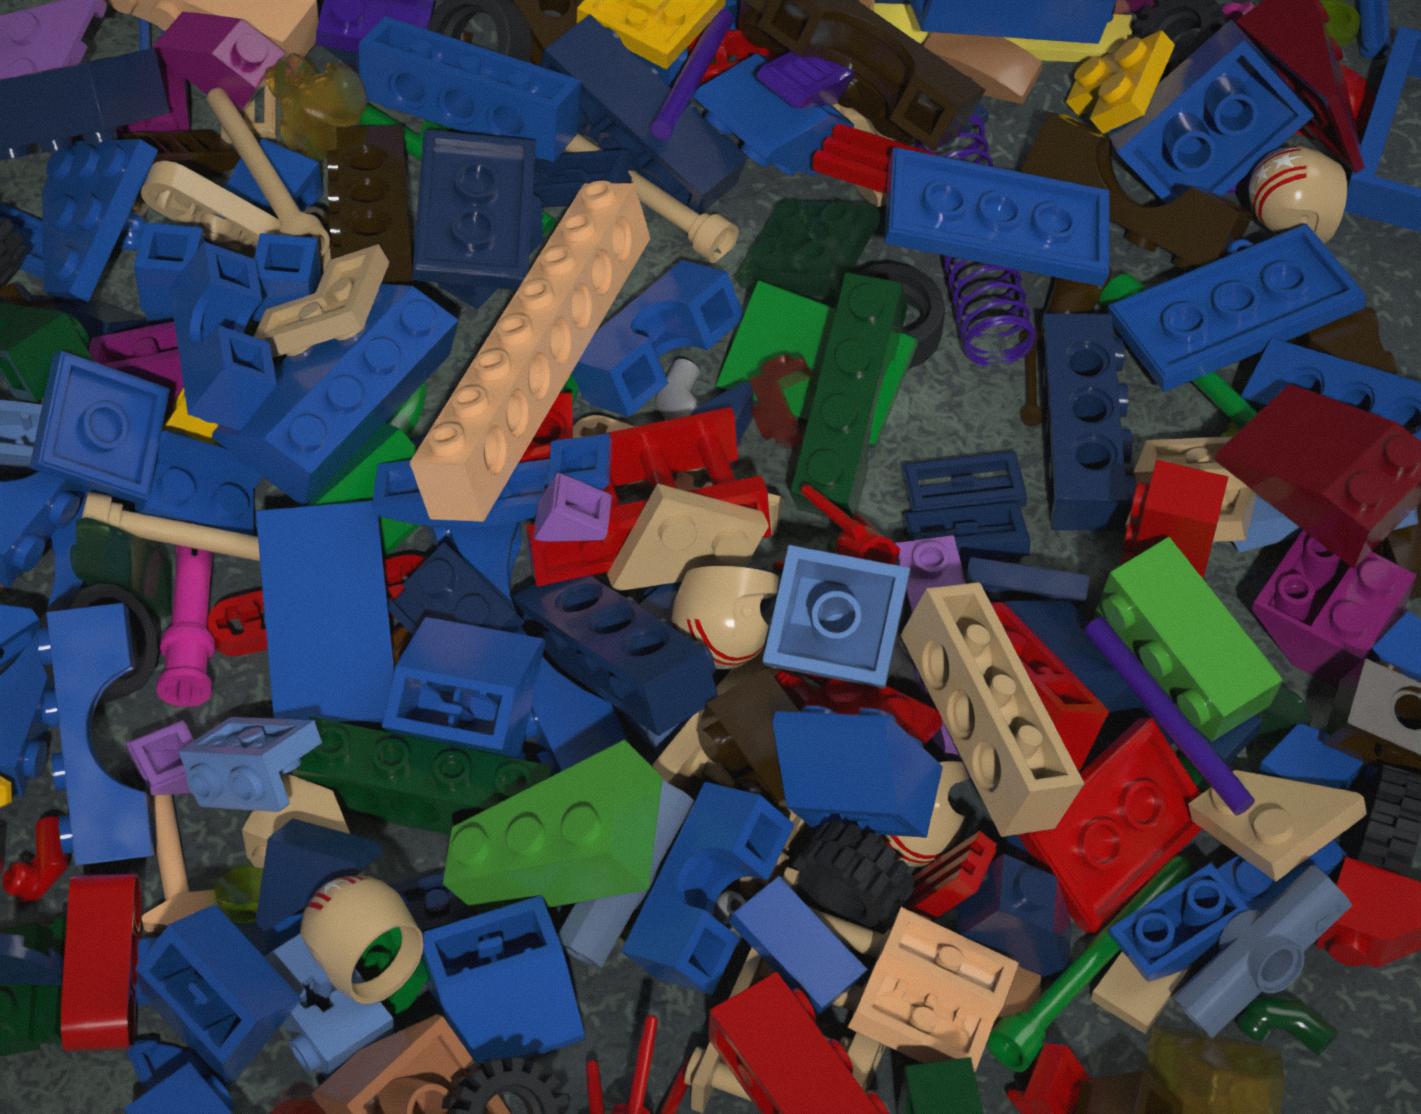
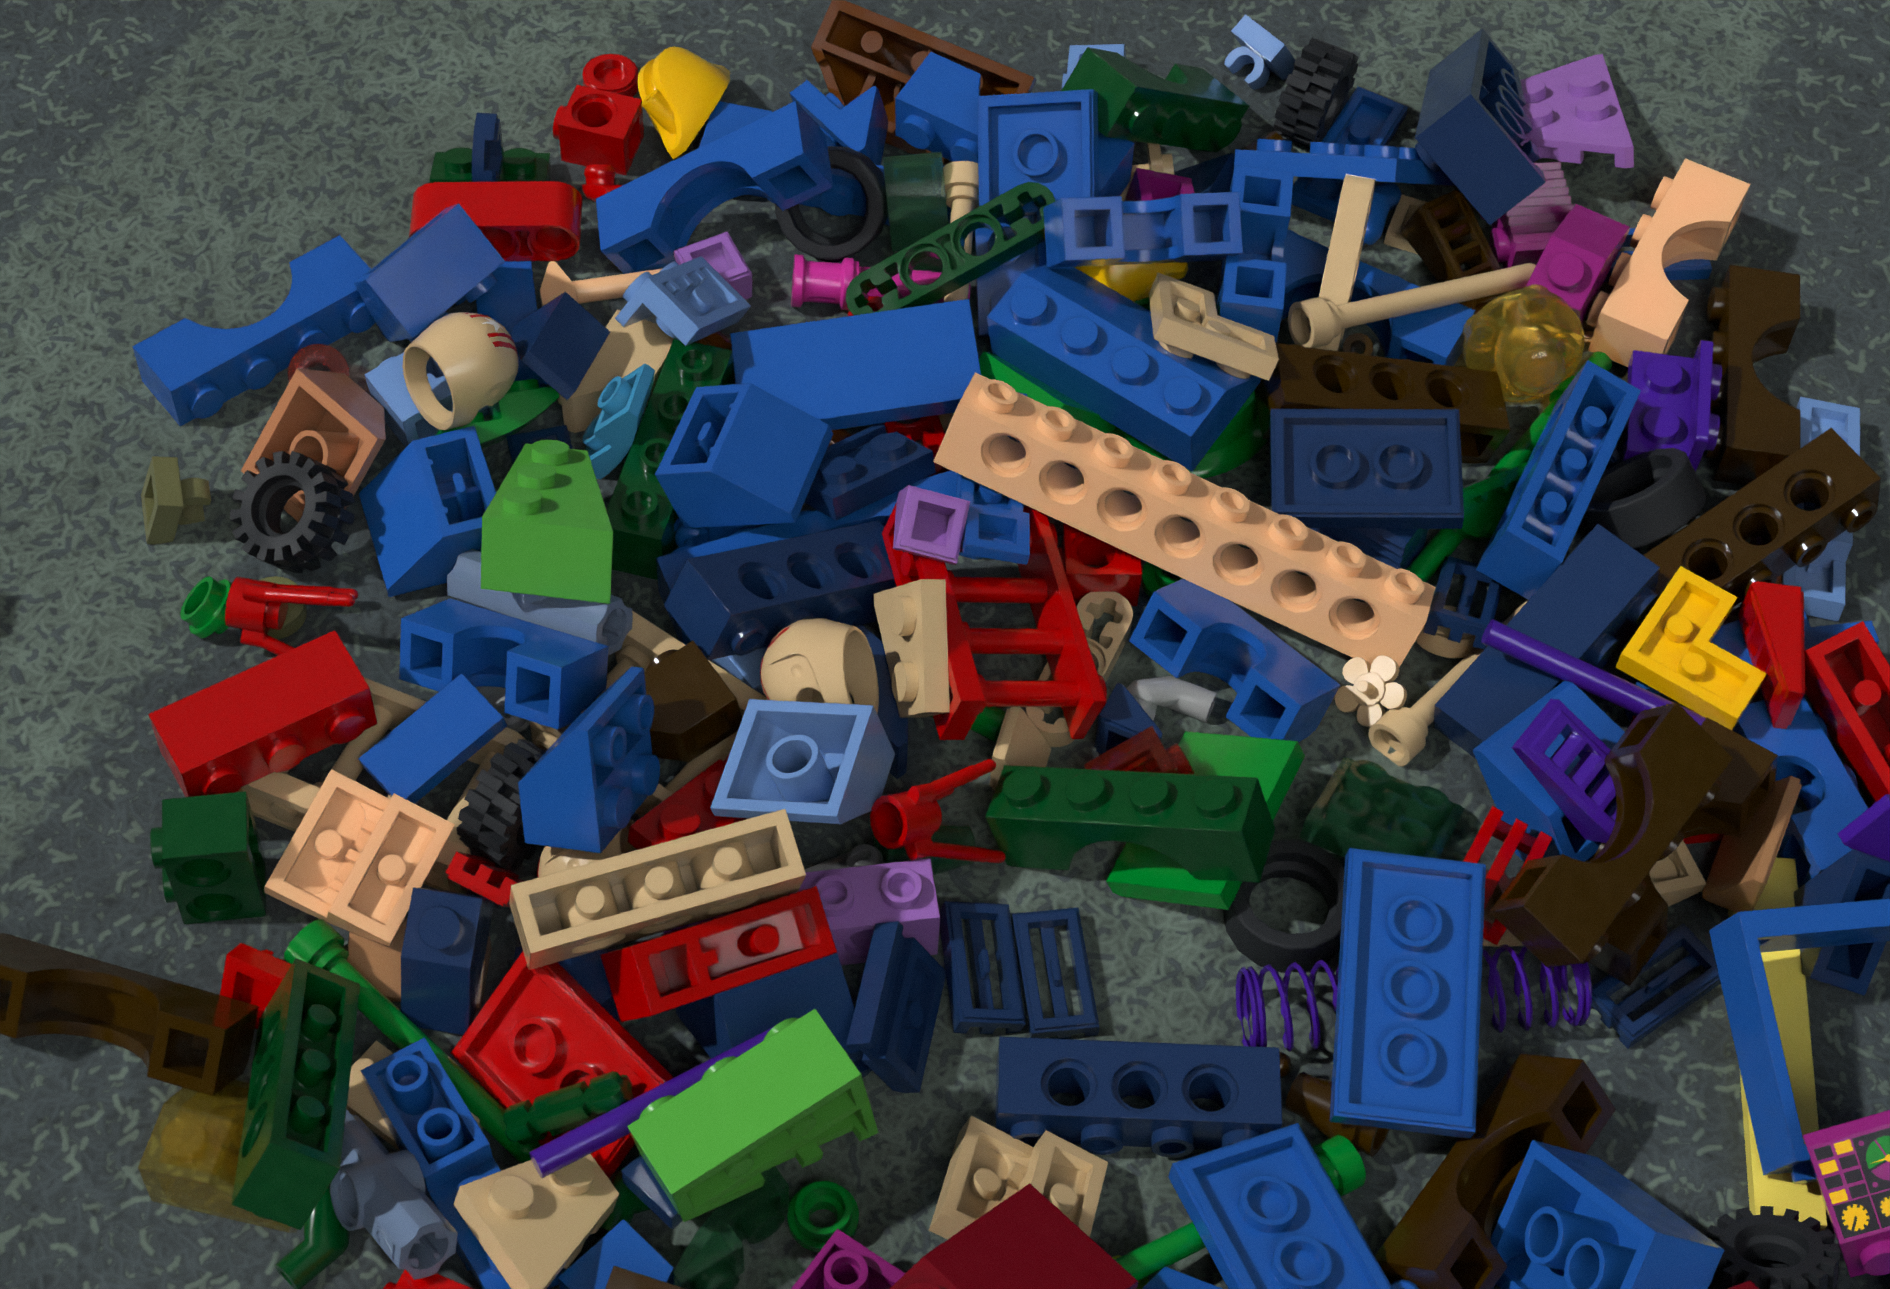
camera: 90 degrees right, 0 degrees up
(212, 519) = (948, 246): none -> dark green beam
(397, 815) = (615, 428): none -> dark azure slope
(665, 249) = (1371, 689): none -> tan plant
(991, 61) = (1701, 1044): medium nougat slope -> none
(1121, 82) = (1674, 1170): yellow plate -> none
(1167, 806) = (566, 1108): none -> dark green axle
(1176, 505) = (909, 1130): red brick -> none
(1221, 974) = (297, 1096): none -> dark green brick

